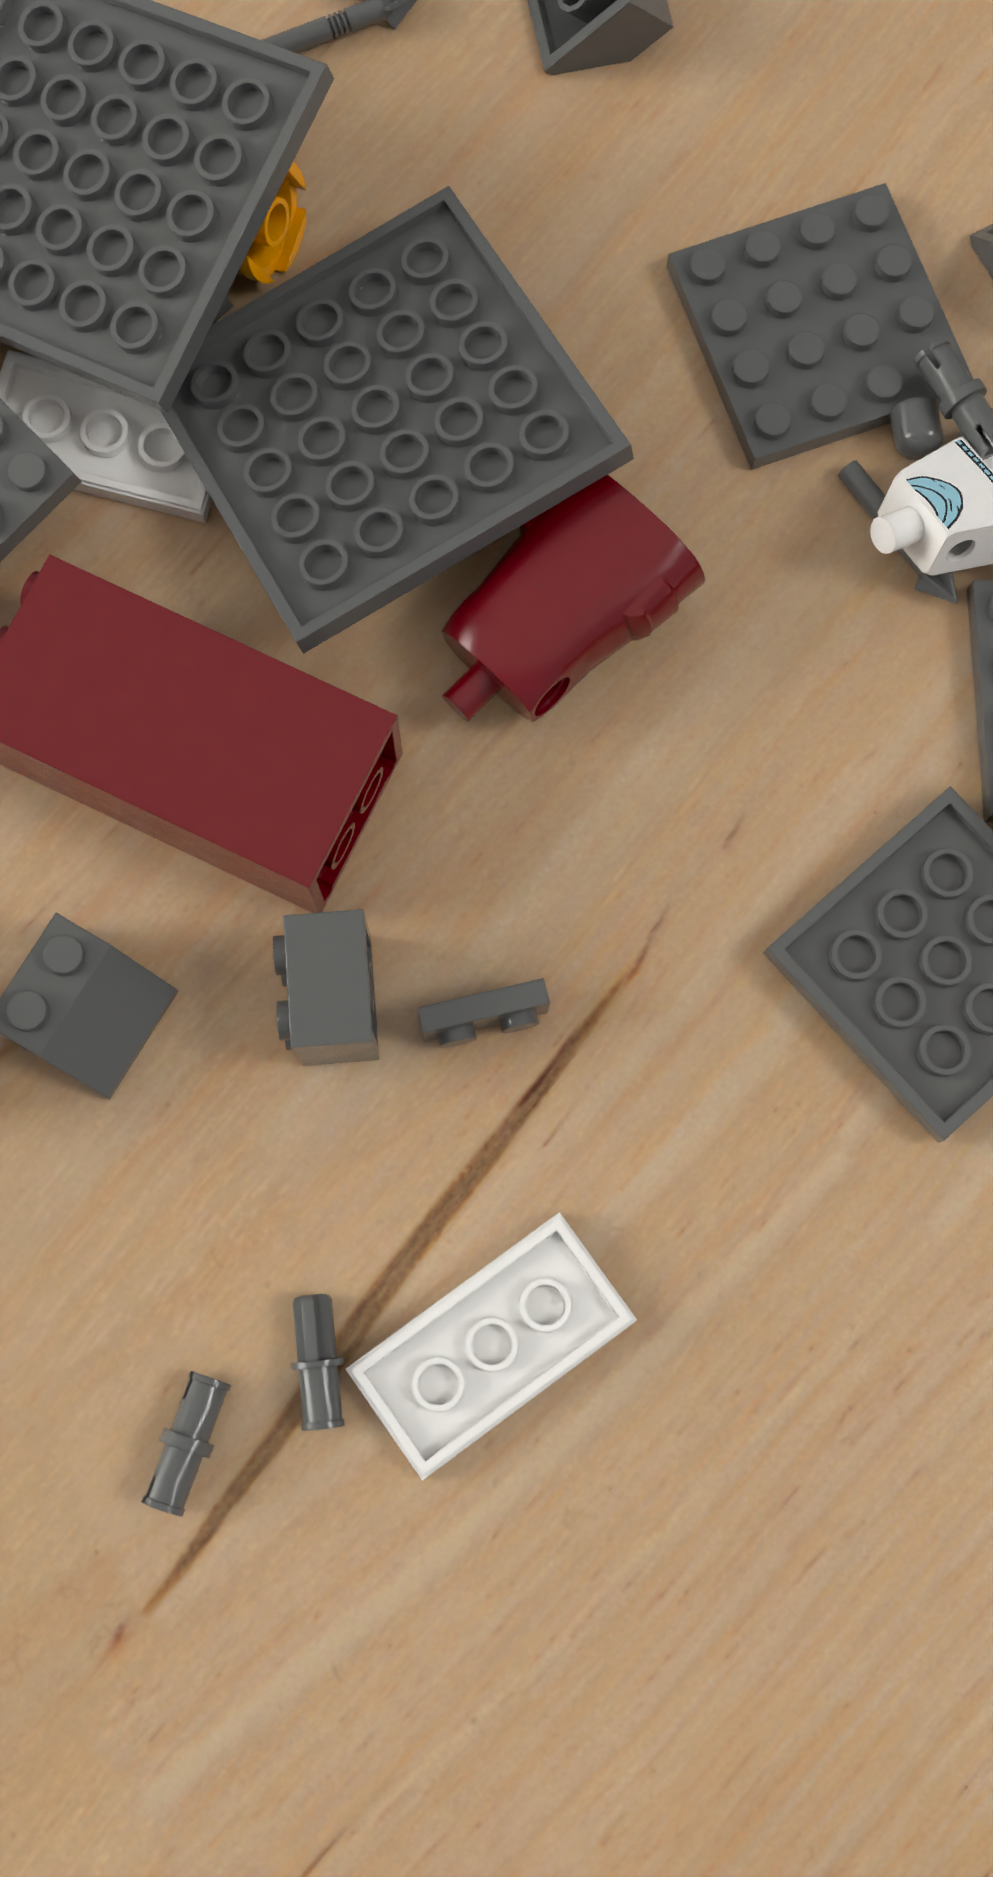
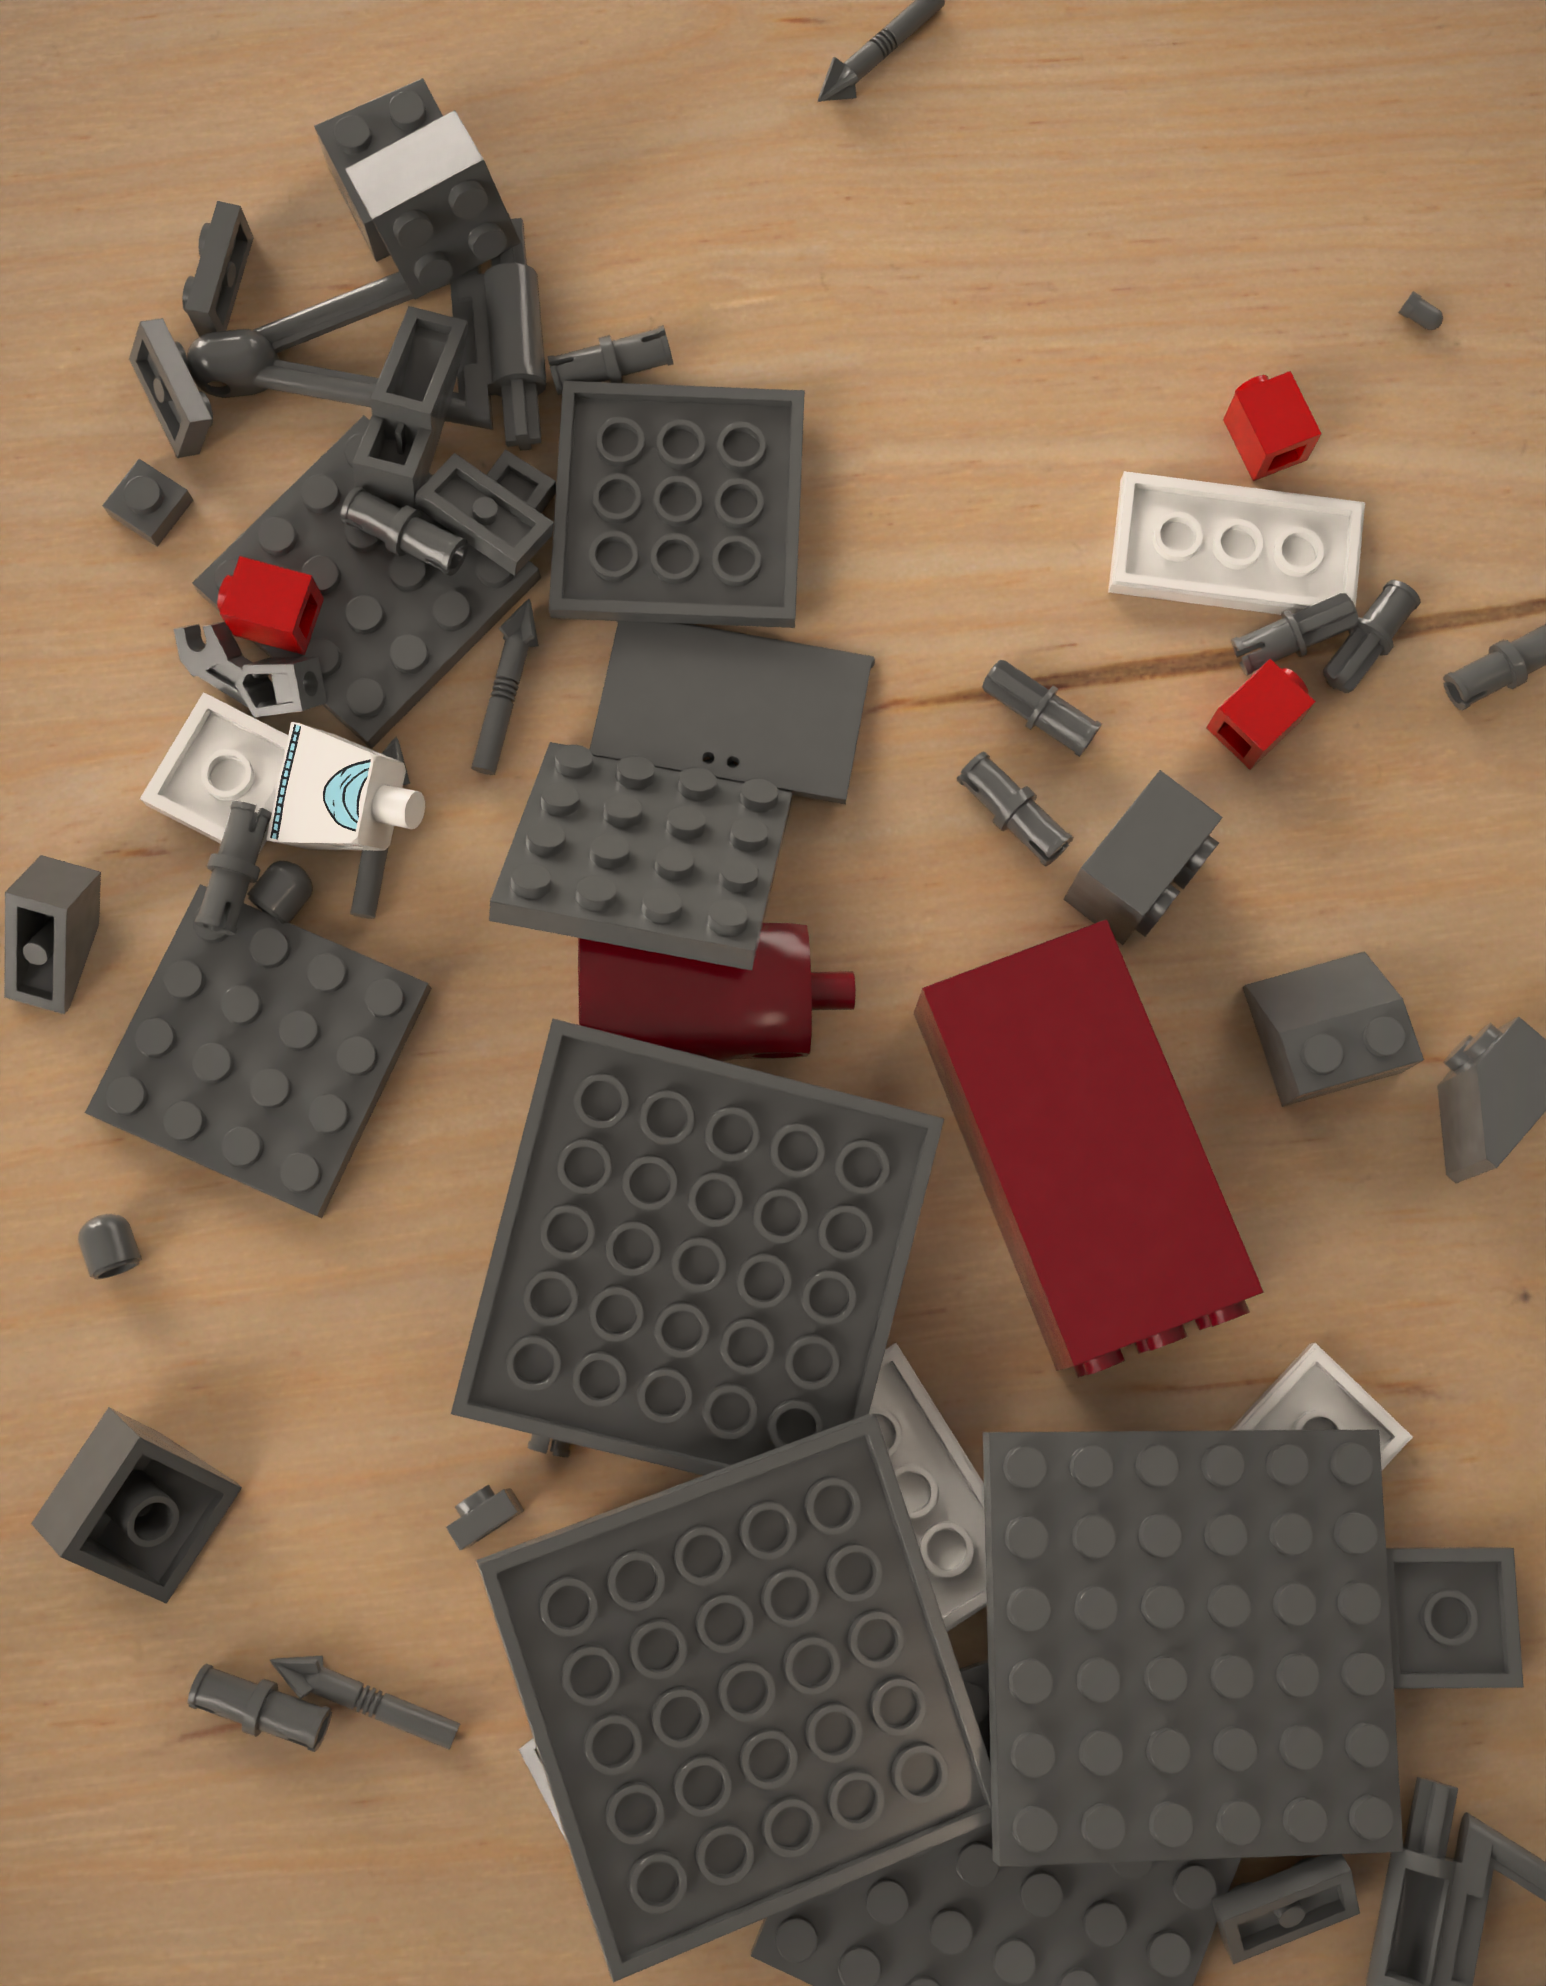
camera: 135 degrees left, 0 degrees up
(346, 1210) = (1261, 713): none -> red brick
(371, 174) = (482, 1515): none -> dark grey plate
(378, 1304) = (1296, 632): none -> dark grey axle
(467, 960) = (1014, 808): none -> dark grey pin
(510, 1007) = (1019, 748): dark grey plate -> none
(521, 1060) = (1040, 706): none -> dark grey axle
(526, 1717) = (1422, 312): none -> dark grey piece
(558, 1474) = (1271, 424): none -> red brick
(691, 651) = (644, 857): none -> dark grey plate
(735, 867) = (732, 697): none -> dark grey container
(780, 122) = (108, 1246): none -> dark grey piece
(953, 757) = (519, 635): none -> dark grey piece

